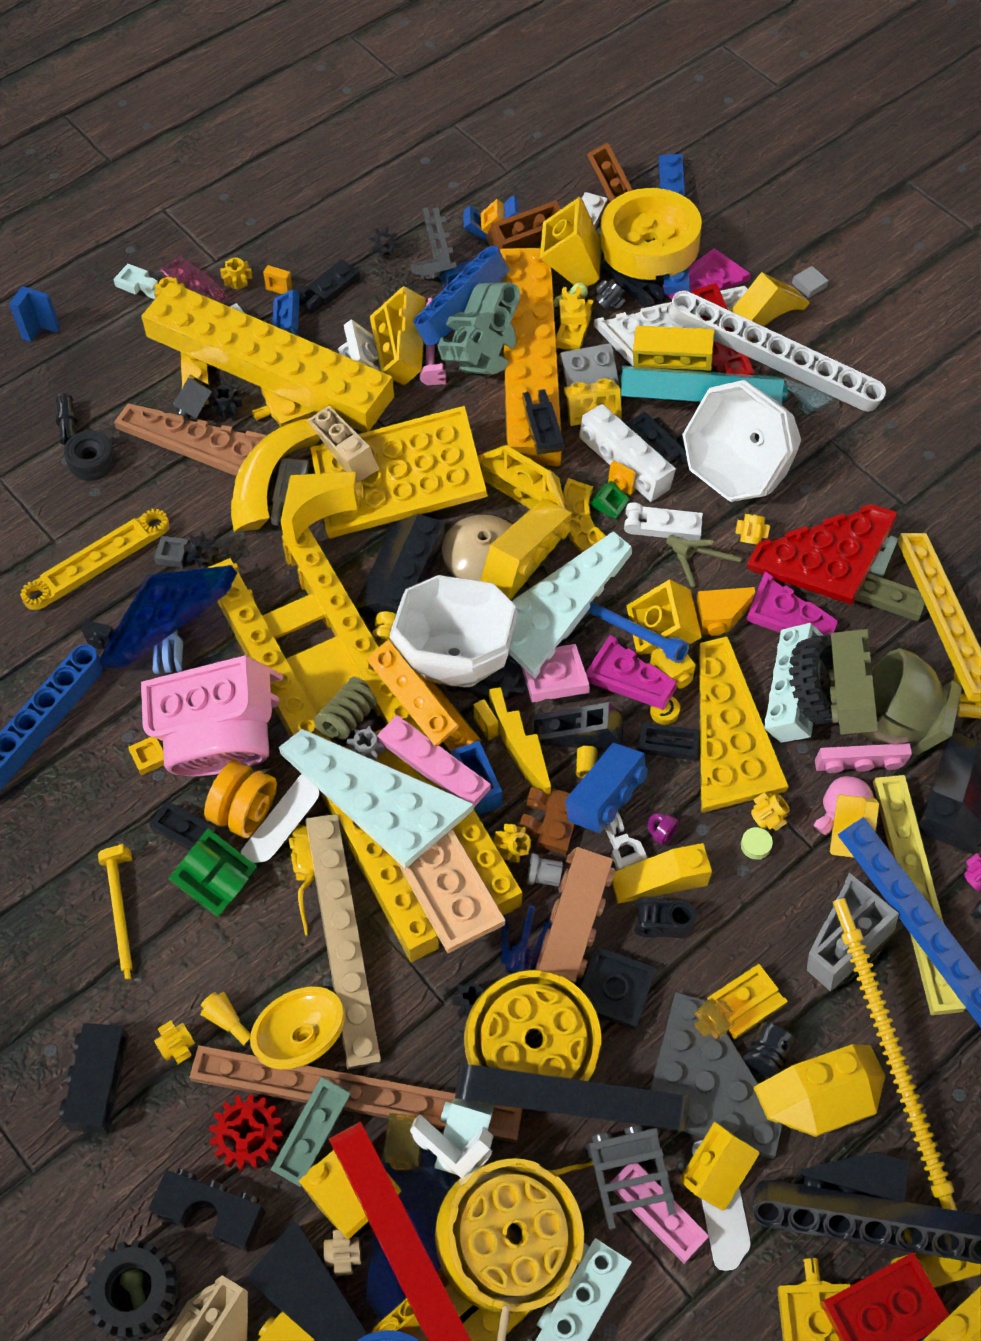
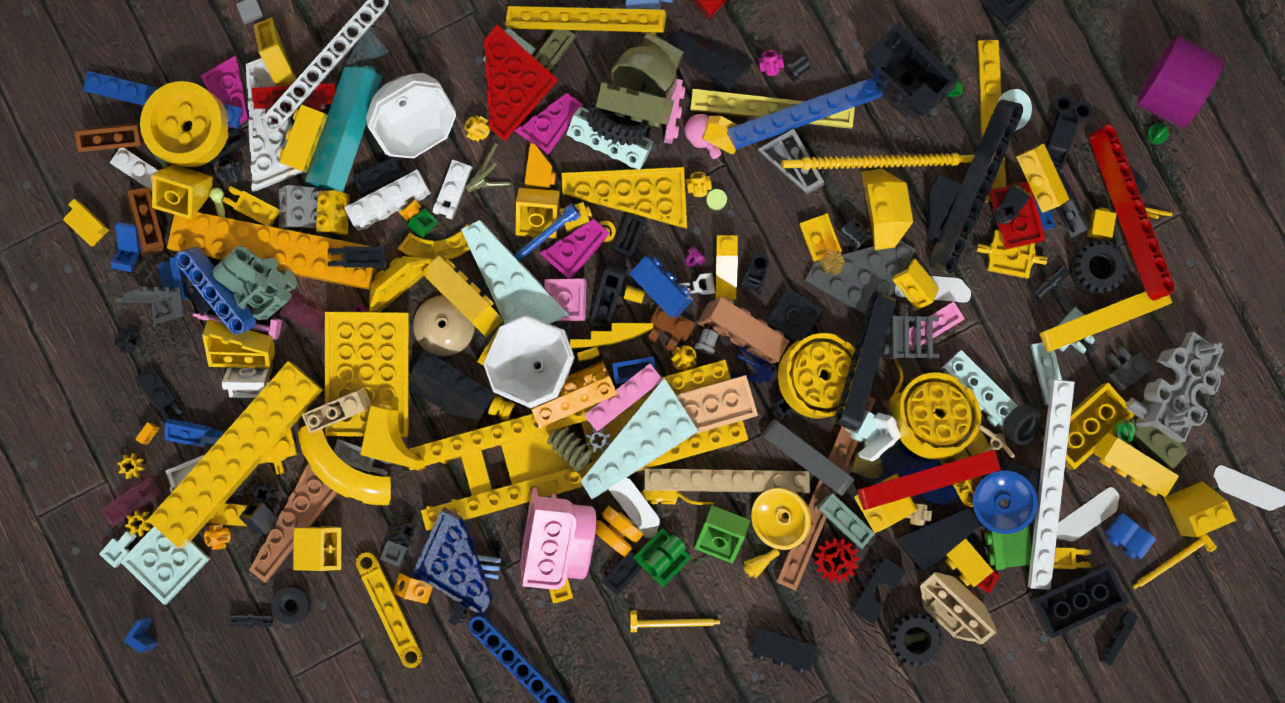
camera: 75 degrees left, 25 degrees up
(119, 328) = (162, 565): none -> light aqua plate
(125, 581) = (413, 589): none -> light orange bracket
(163, 462) = (317, 548): none -> yellow slope
(164, 365) = (217, 536): none -> light orange gear
(174, 1042) = (771, 597): yellow gear -> none
(261, 950) = (722, 534): none -> bright green slope
(399, 1050) = (808, 457): none -> dark grey beam
(458, 393) = (303, 315): none -> clear pink hinge
(492, 214) = (126, 245): light orange tile -> none
(511, 183) = (85, 223): none -> yellow panel
(572, 308) = (240, 206): yellow plate -> none
(907, 1291) = (1012, 202): none -> black piece

